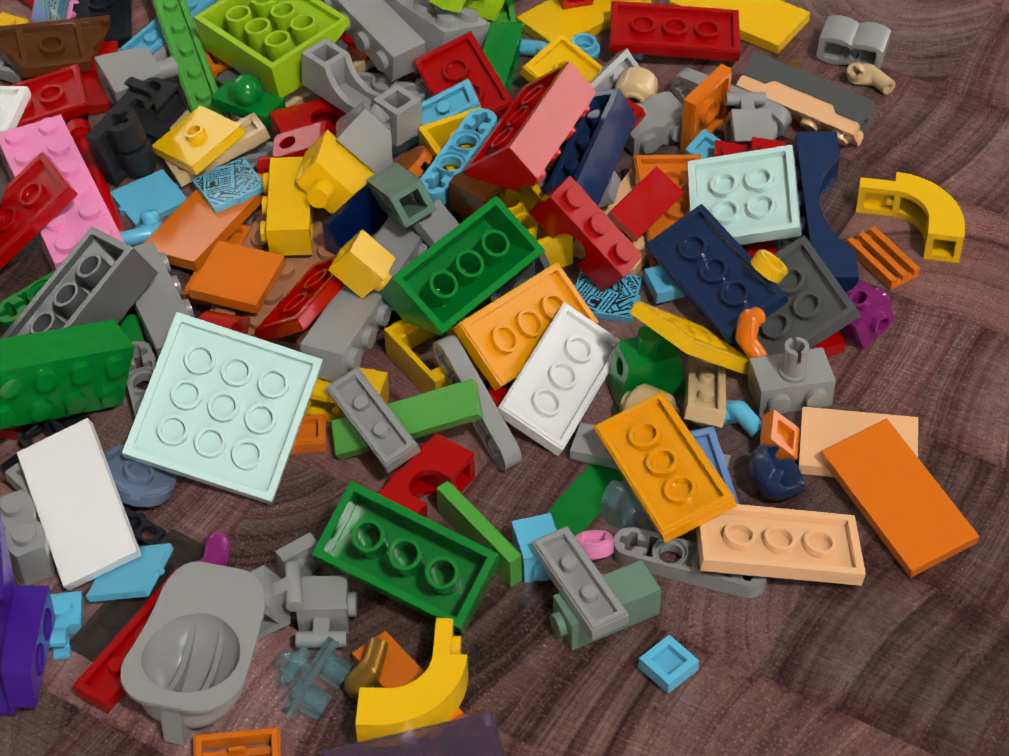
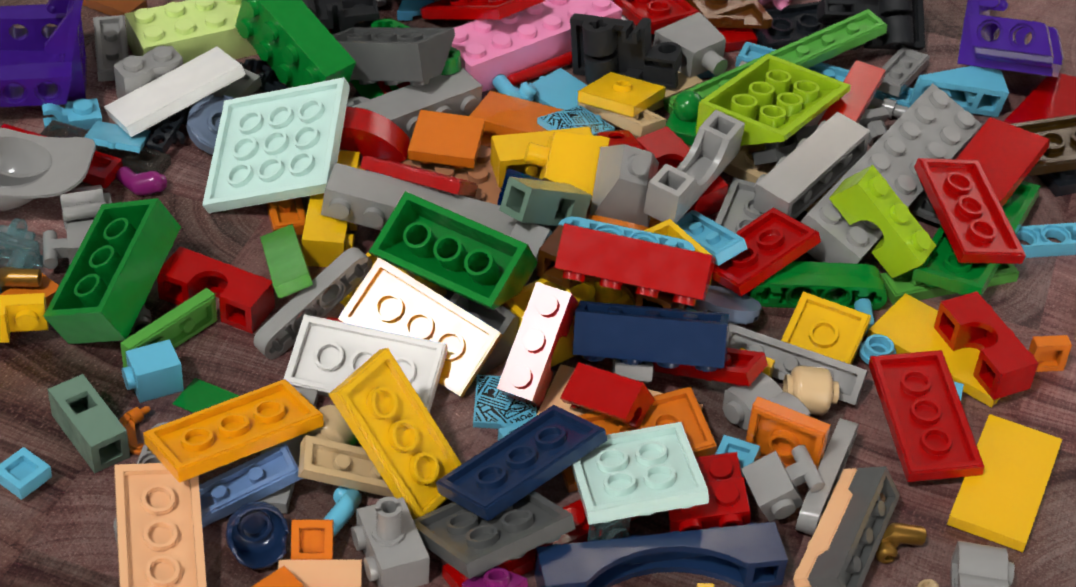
camera: 75 degrees right, 5 degrees down
(363, 264) = (432, 178): yellow brick -> none
(373, 419) = (277, 235): light grey tile -> none
(579, 583) = (91, 385): light grey tile -> none
(596, 543) = (162, 408): bright pink tile -> none
(747, 332) = (430, 494): orange arm -> none
(769, 266) = (518, 488): yellow tile -> none

